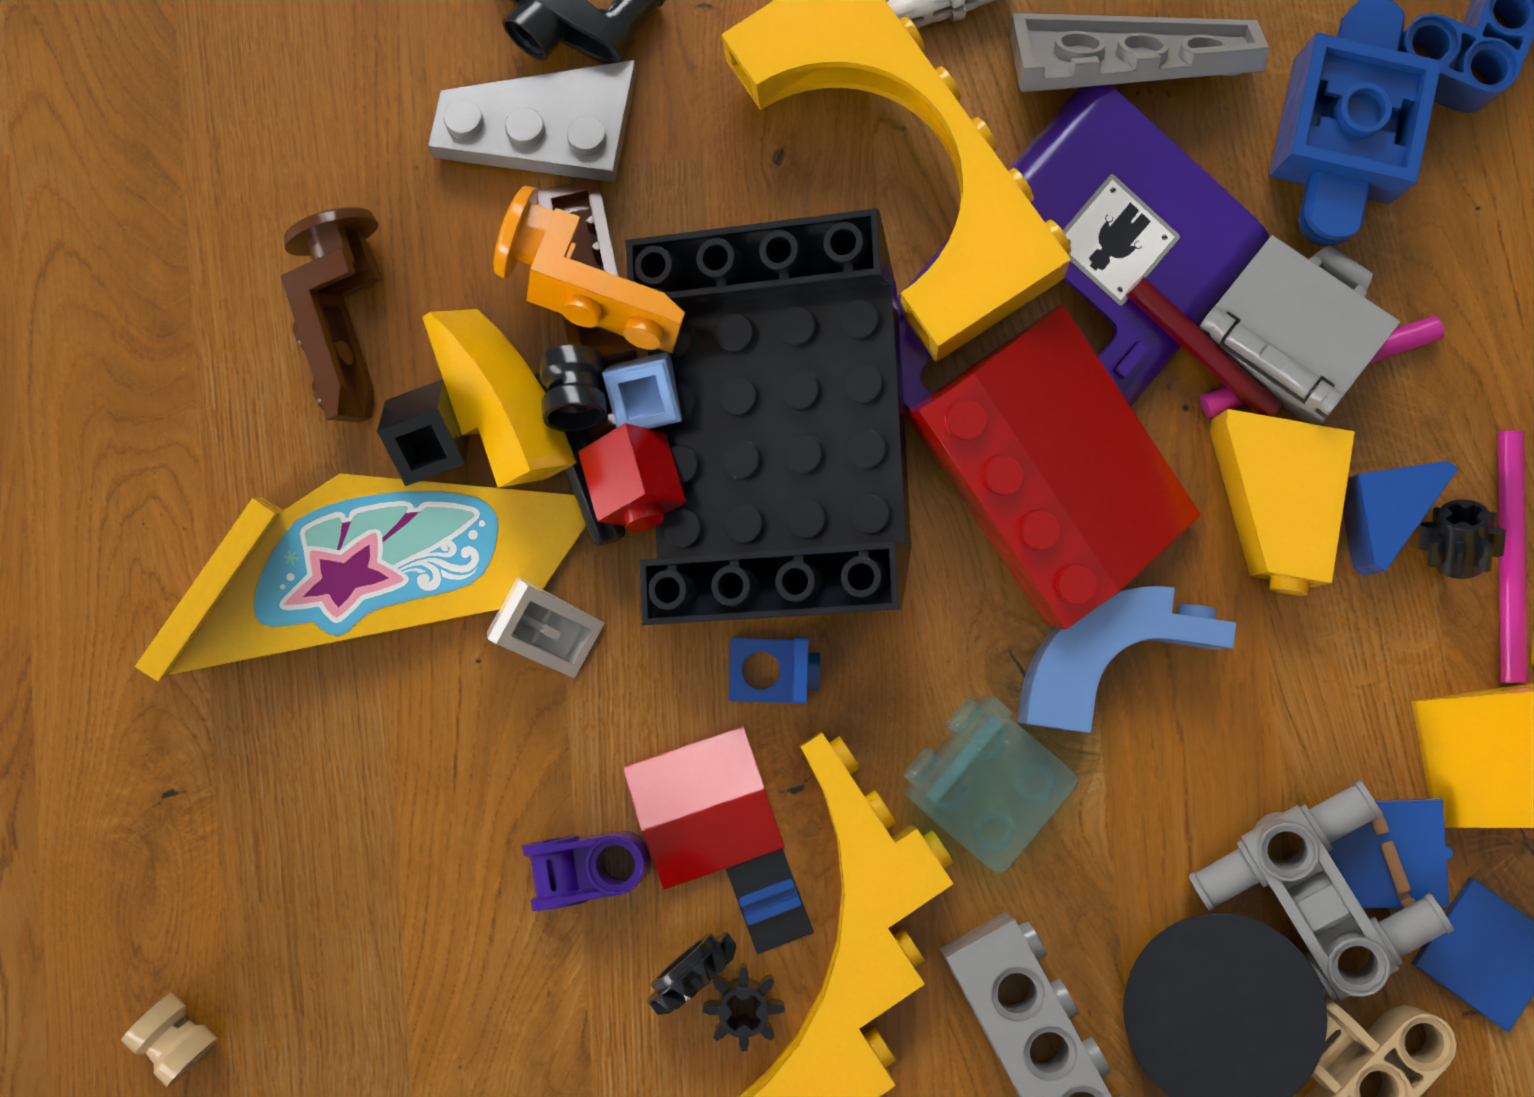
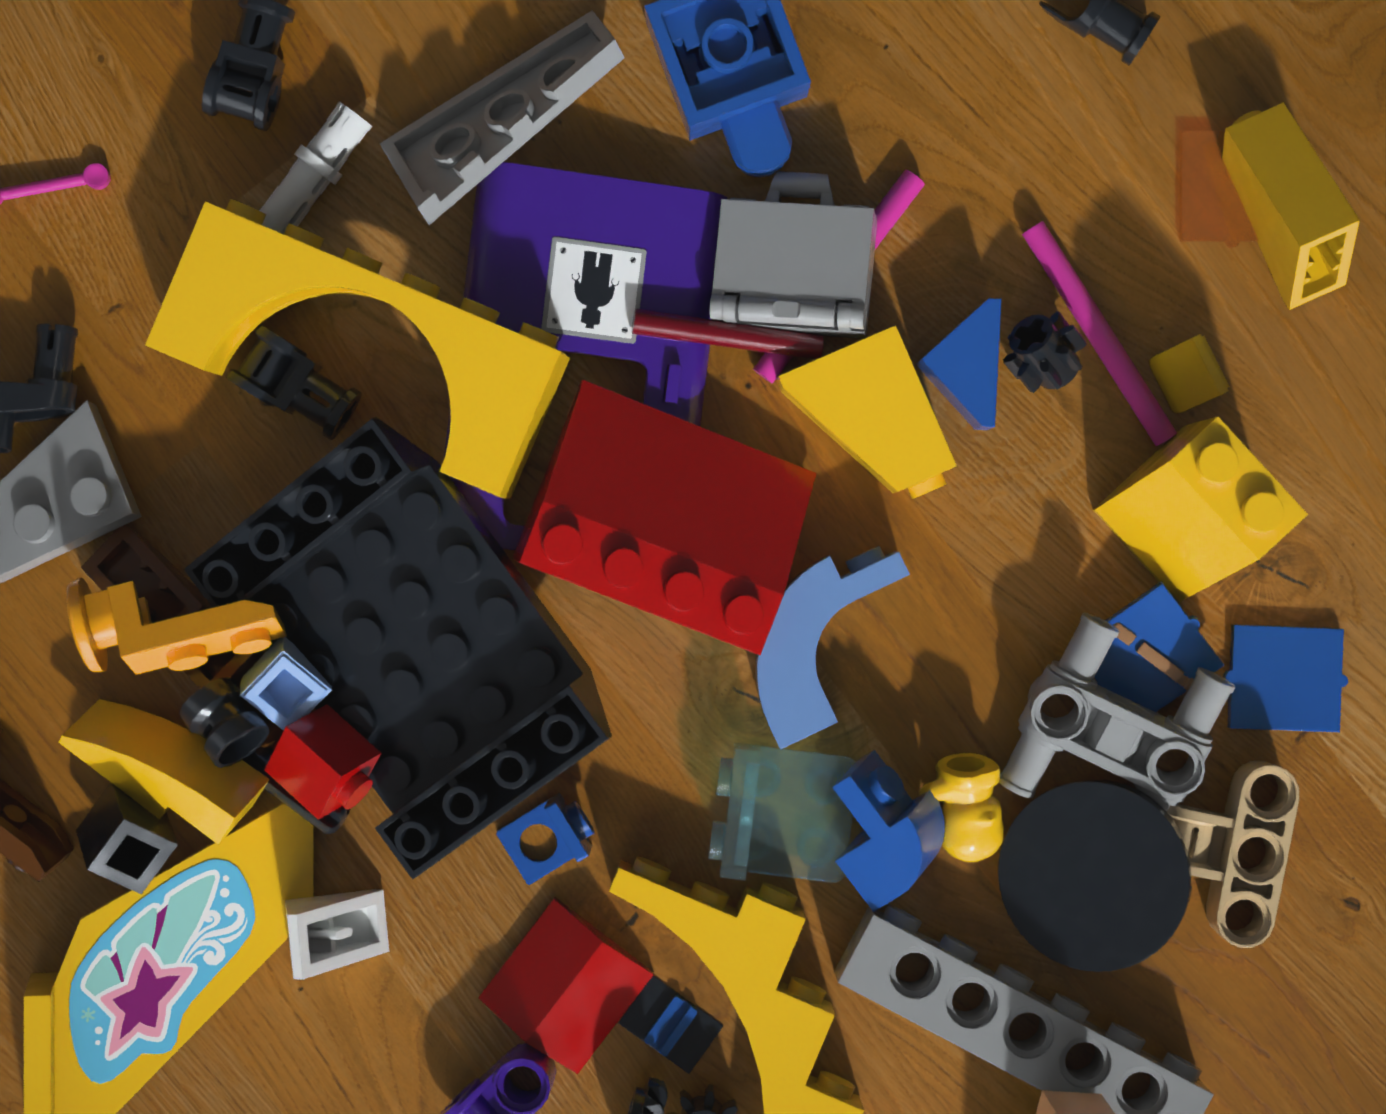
camera: 25 degrees left, 5 degrees up
(812, 150) = (285, 377): none -> black connector
(1081, 866) = (898, 832): none -> blue brick
(1149, 888) = (969, 807): none -> yellow animal

